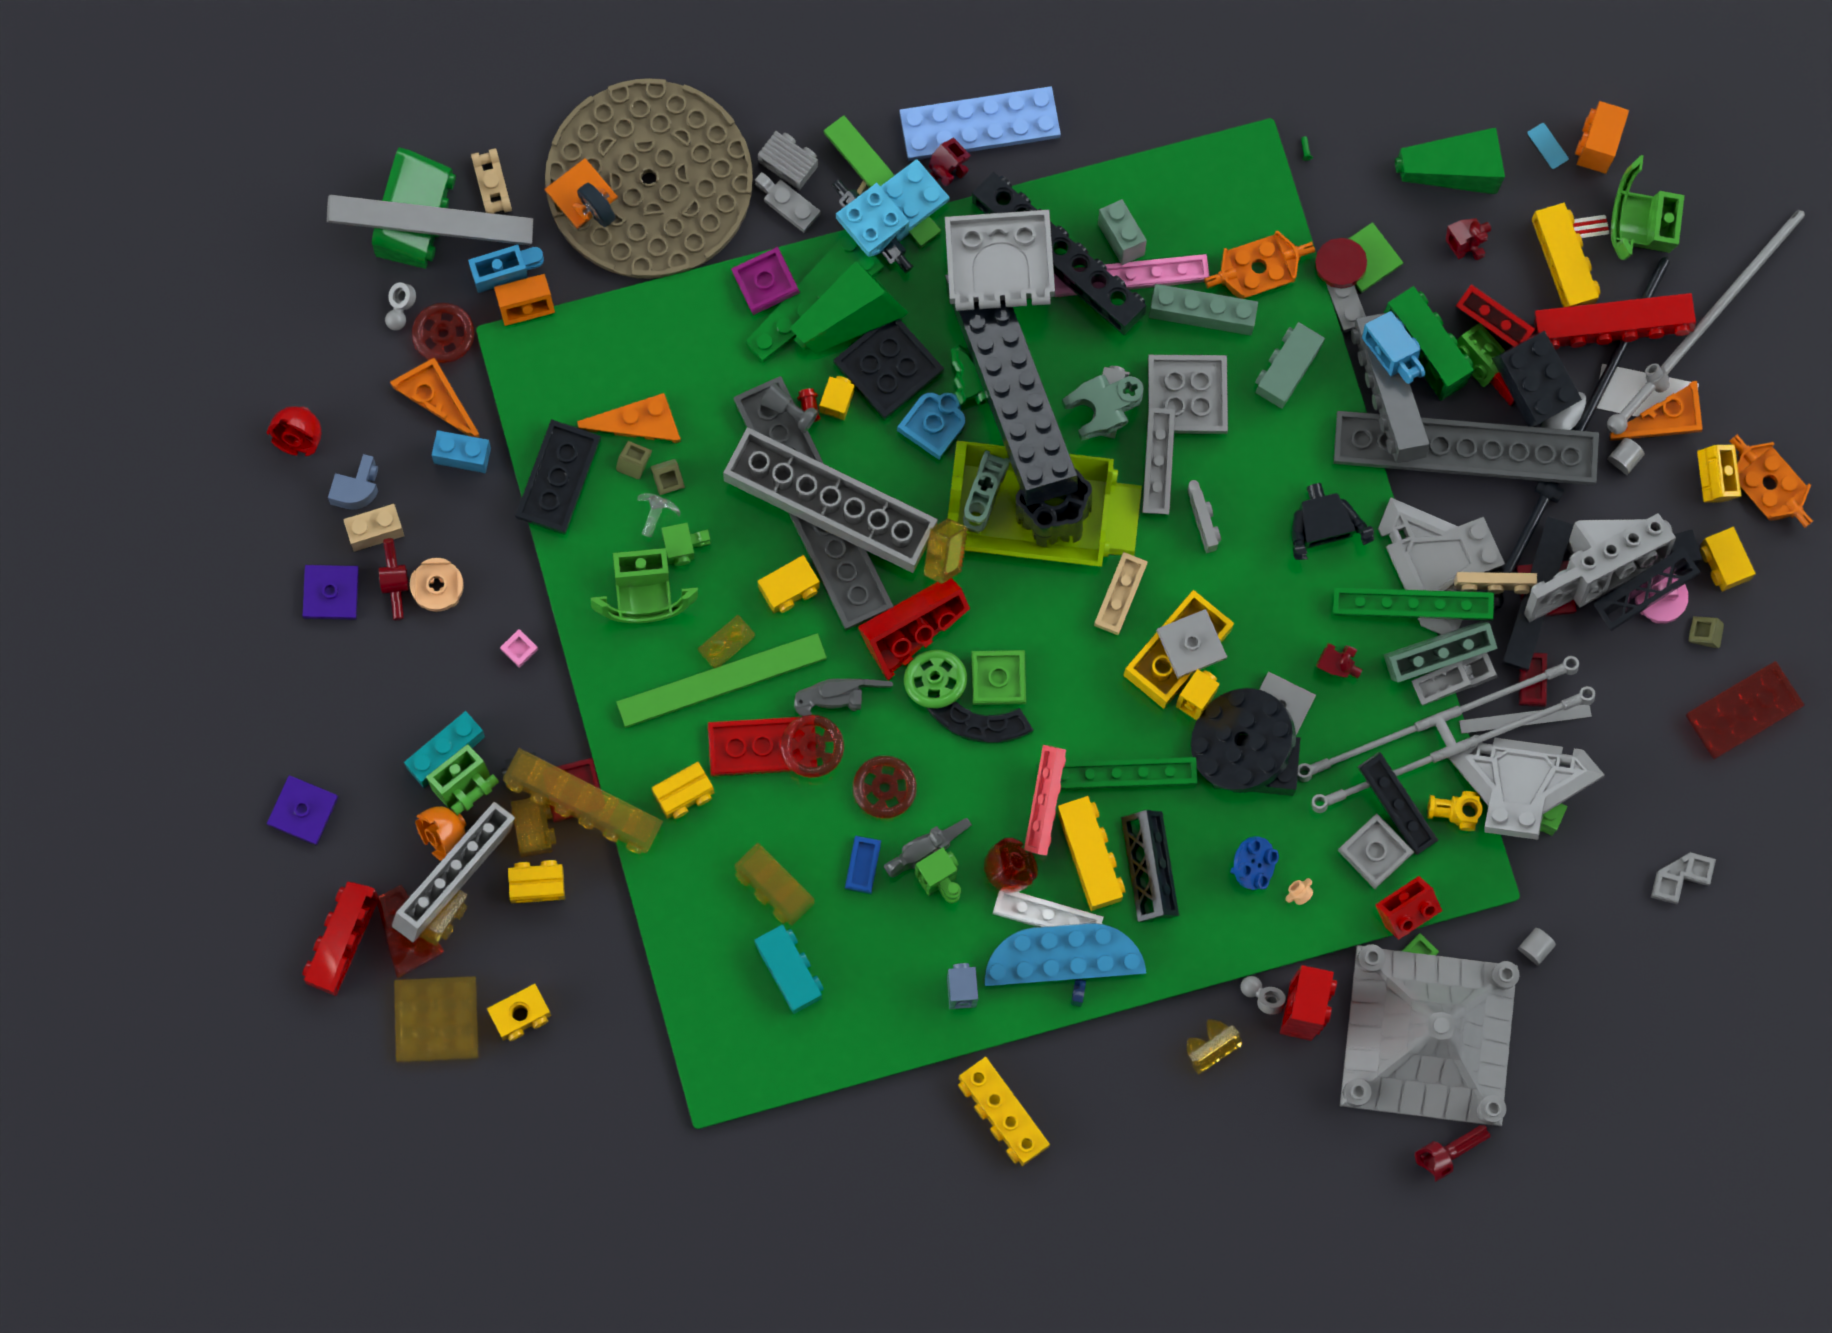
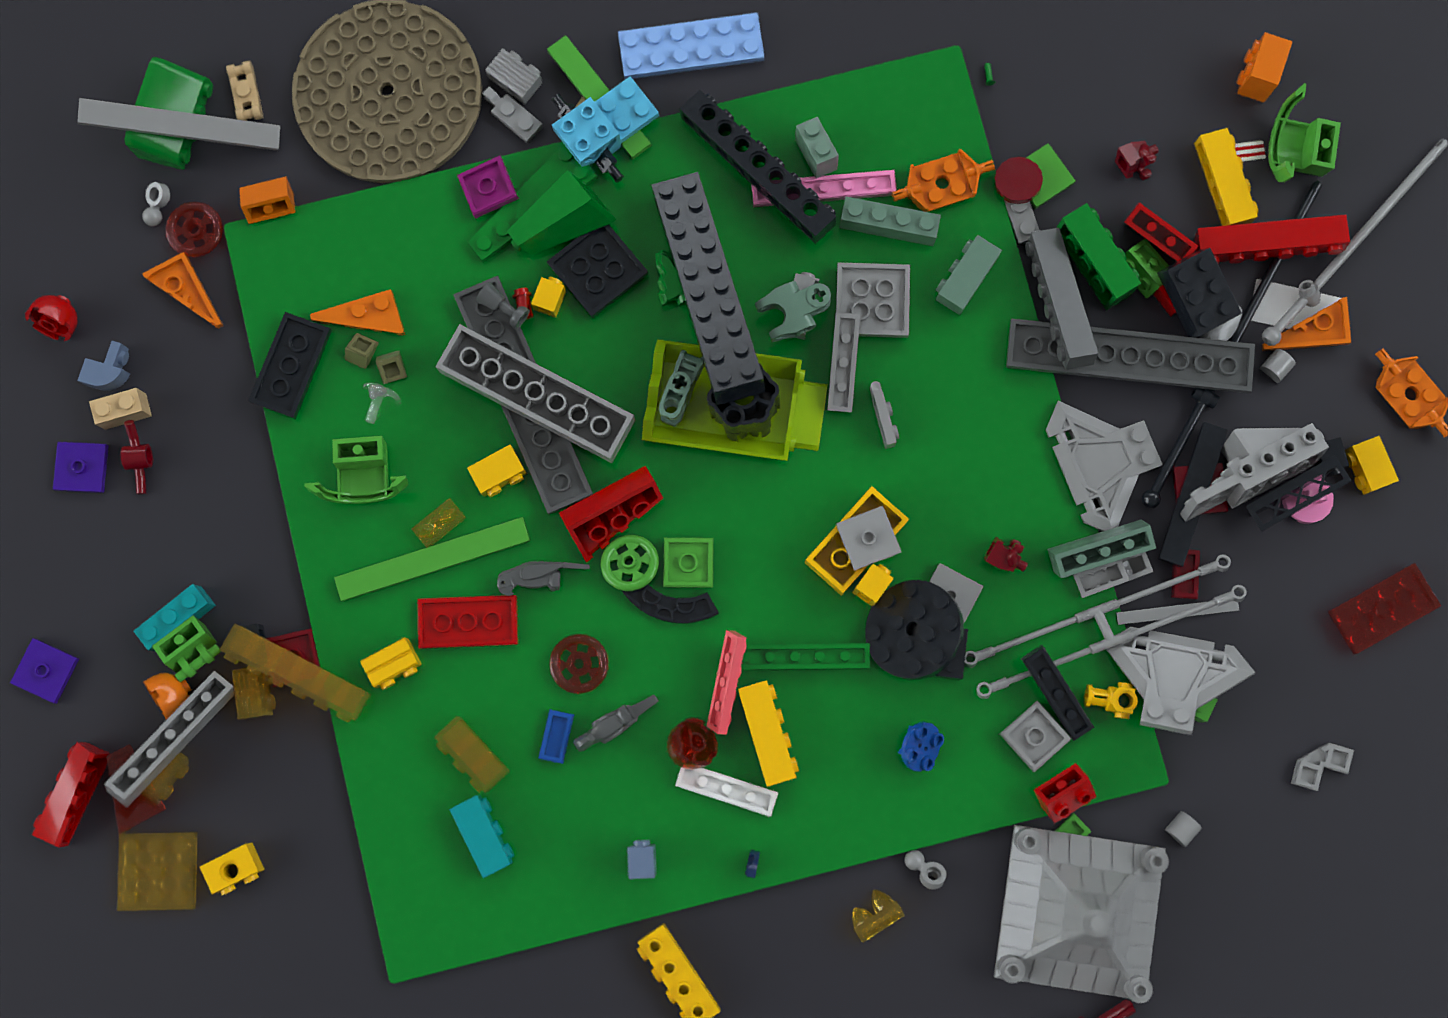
camera: 10 degrees right, 5 degrees up
(425, 575) = (168, 474): light nougat plate -> none
(461, 451) = (203, 339): dark azure brick -> none
(504, 266) = (249, 169): dark azure brick -> none
(519, 648) = (249, 524): bright pink plate -> none
(536, 882) = (254, 745): yellow brick -> none
(583, 195) = (324, 104): orange plate -> none
(680, 543) = (398, 430): bright green brick -> none
(829, 760) = (503, 644): clear red plate -> none
(933, 423) = (637, 322): dark azure plate -> none
(937, 873) = (623, 749): bright green brick -> none
(945, 550) = (641, 444): clear yellow brick -> none
(948, 158) = (658, 77): dark red piece -> none
(1000, 259) = (701, 171): light grey hinge -> none
(1063, 954) = (739, 829): dark azure plate -> none
(1120, 593) = (804, 486): tan plate -> none
(1154, 863) = (828, 745): black fence -> none
(1300, 892) = (963, 774): light nougat plate -> none
(1307, 1003) = (968, 888): red brick -> none
(1325, 521) = (997, 421): black torso -> none
(1394, 347) = (1066, 260): dark azure brick -> none
(1413, 603) = (1078, 502): green plate -> none
(1455, 162) = (1129, 89): green slope -> none
(1495, 582) = (1155, 484): tan plate -> none
(1548, 145) = (1211, 75): medium azure sticker -> none
(1706, 631) = (1348, 532): olive slope -> none
(1719, 473) = (1365, 384): yellow brick -> none

